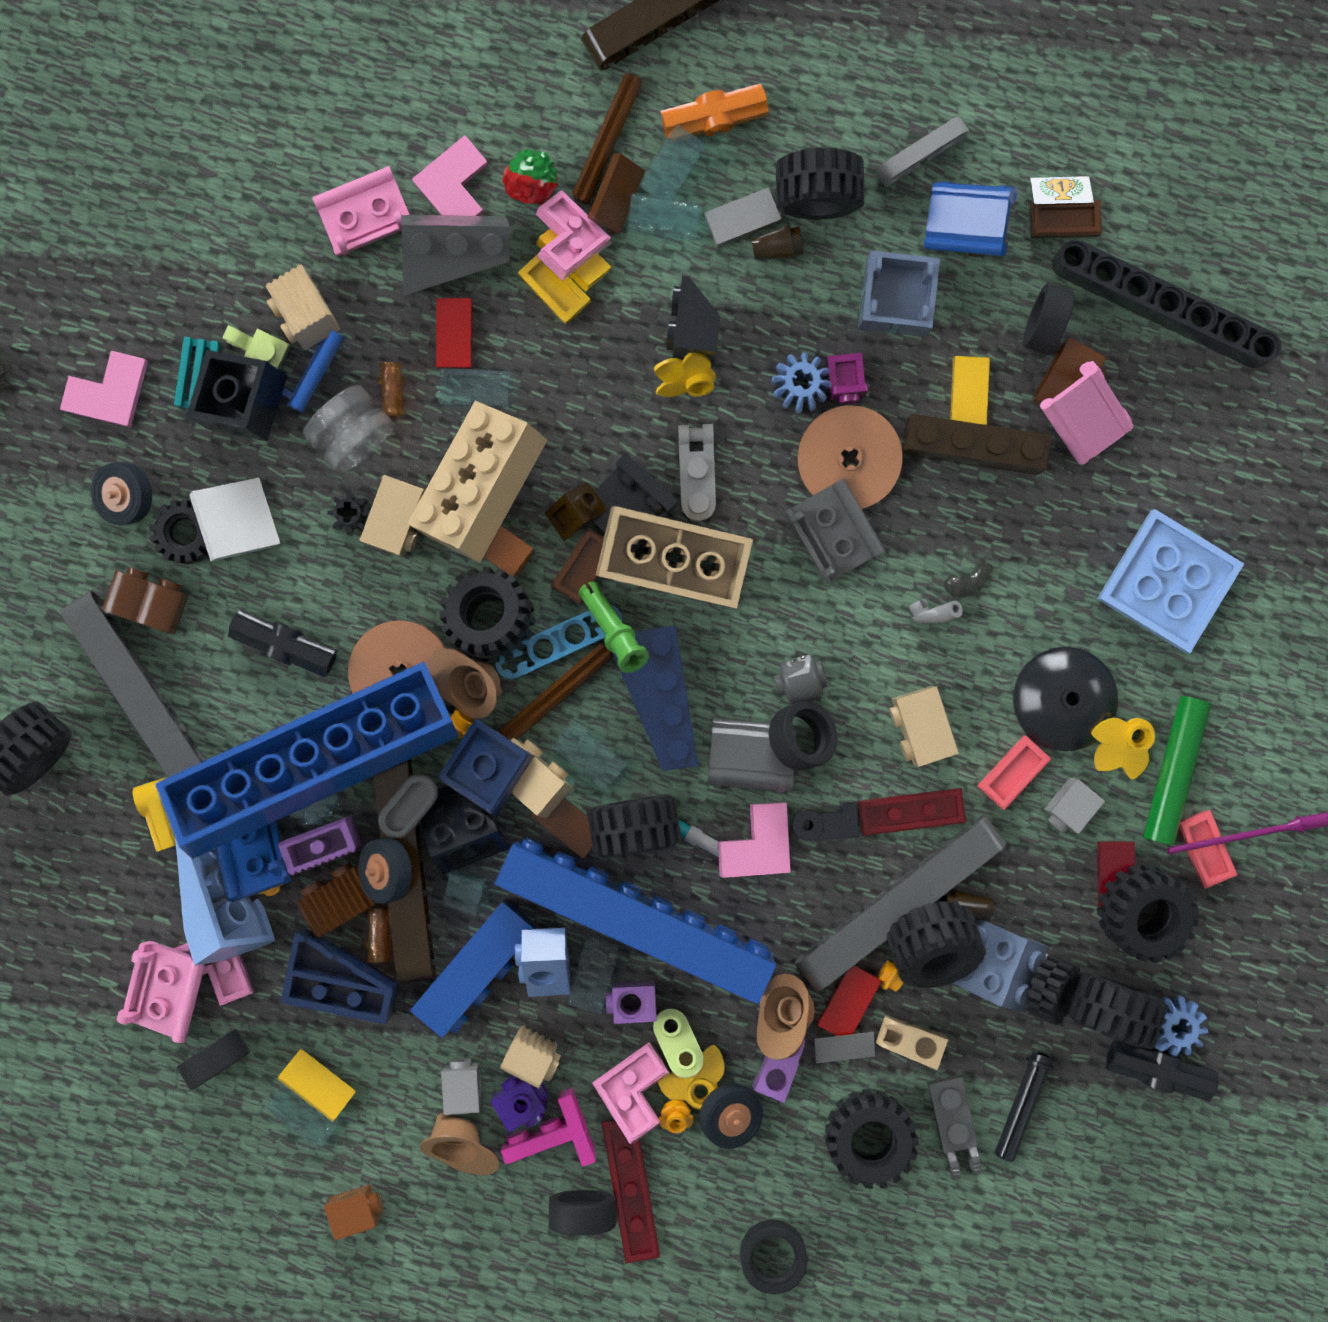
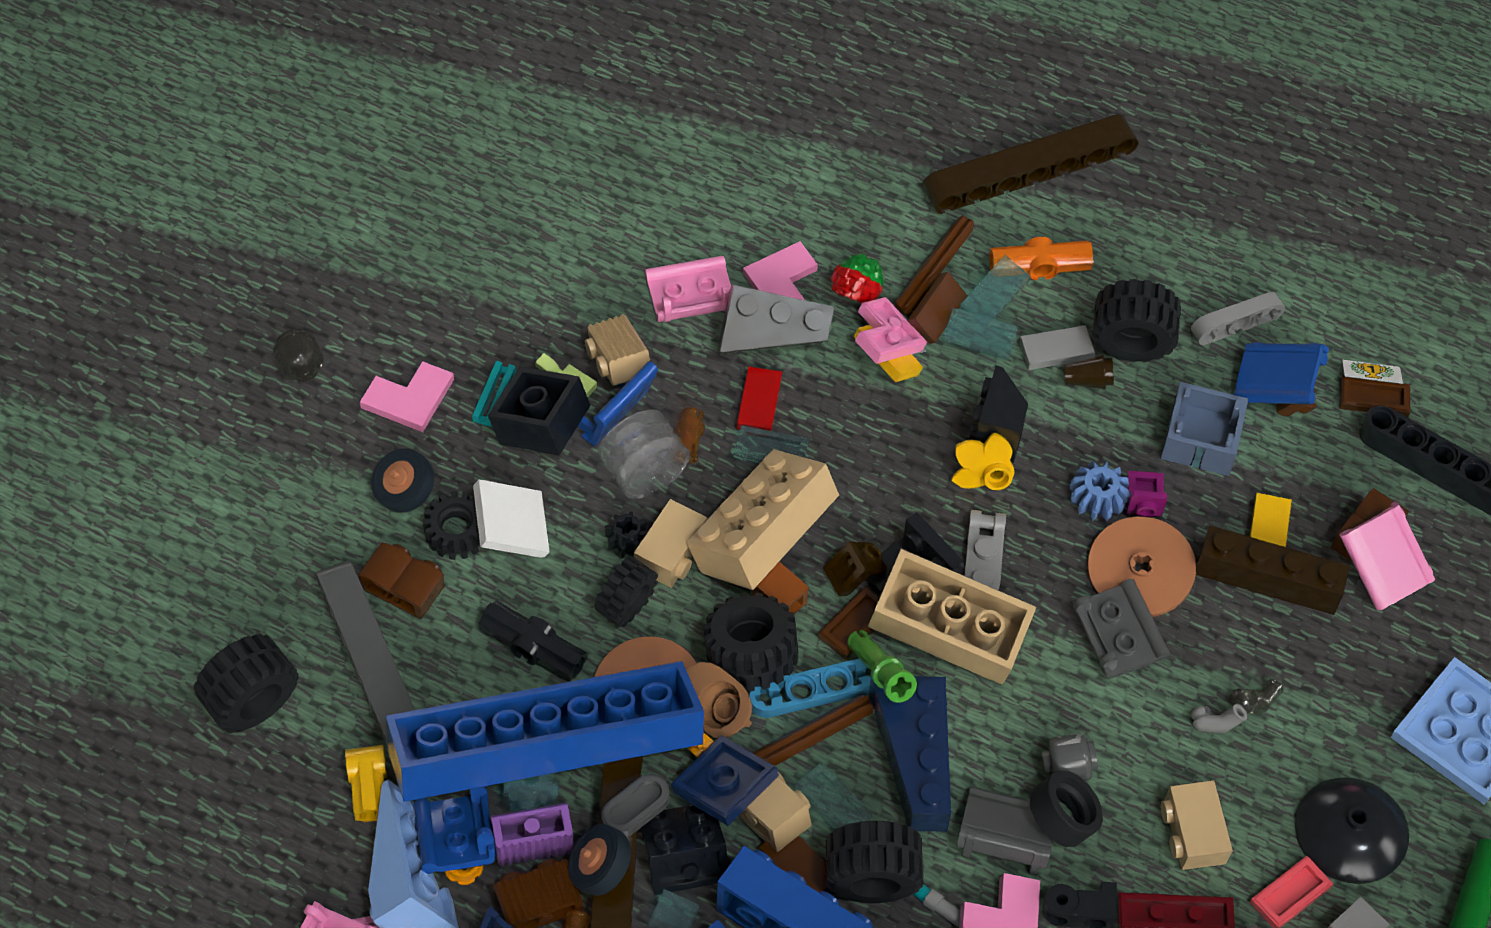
camera: 10 degrees right, 30 degrees down
(360, 582) = (626, 591): none -> black tyre
(560, 296) = (864, 377): yellow tile -> none
(1048, 319) = (1352, 469): black tyre -> none
(1119, 749) = (1406, 884): yellow plate -> none

